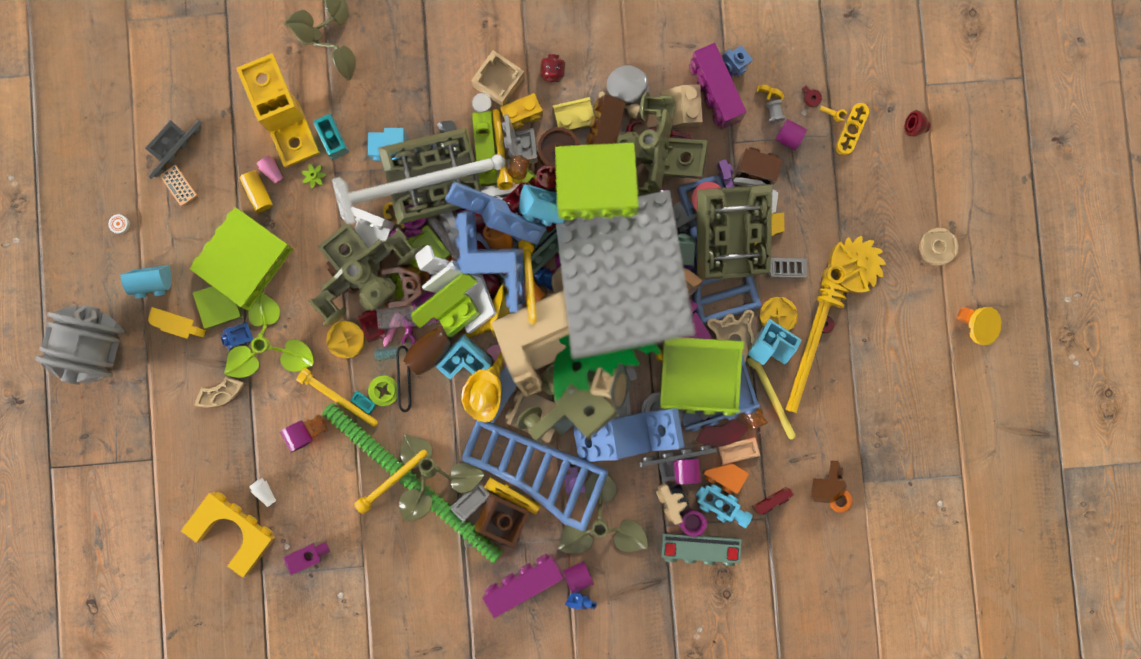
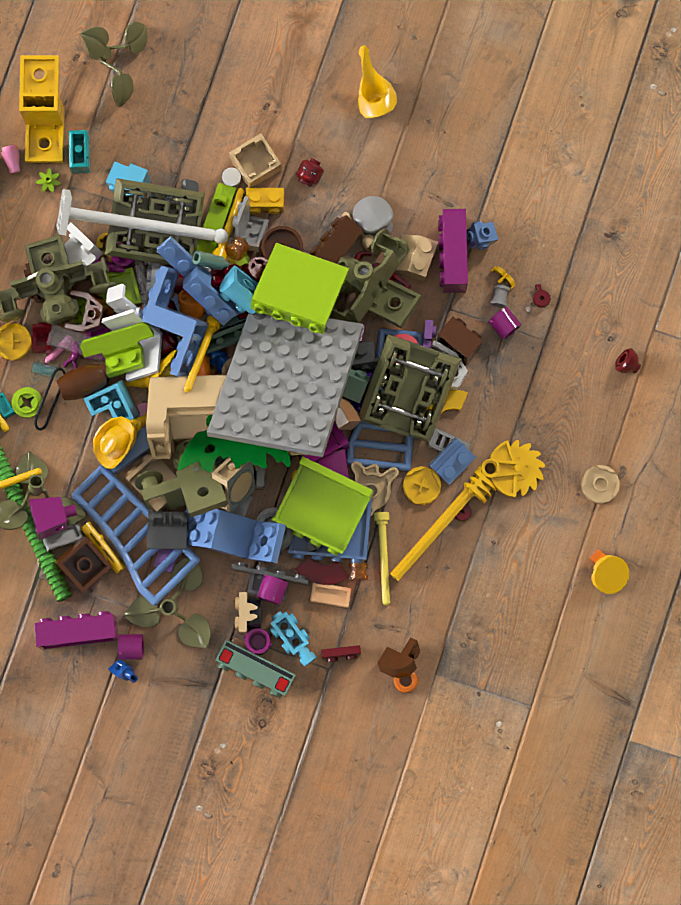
camera: 25 degrees right, 5 degrees down
(452, 489) = (50, 515): none -> magenta torso
(499, 189) = (209, 260): none -> sand green cylinder
(566, 456) = (167, 530): none -> dark grey hinge
(574, 114) = (311, 222): light yellow plate -> none
(727, 475) = (310, 613): orange slope -> none
(774, 342) = (404, 505): medium azure brick -> none
(797, 281) = (452, 460): none -> medium blue plate
(835, 114) = (555, 320): yellow hand -> none
(851, 144) = (572, 329): yellow beam -> none

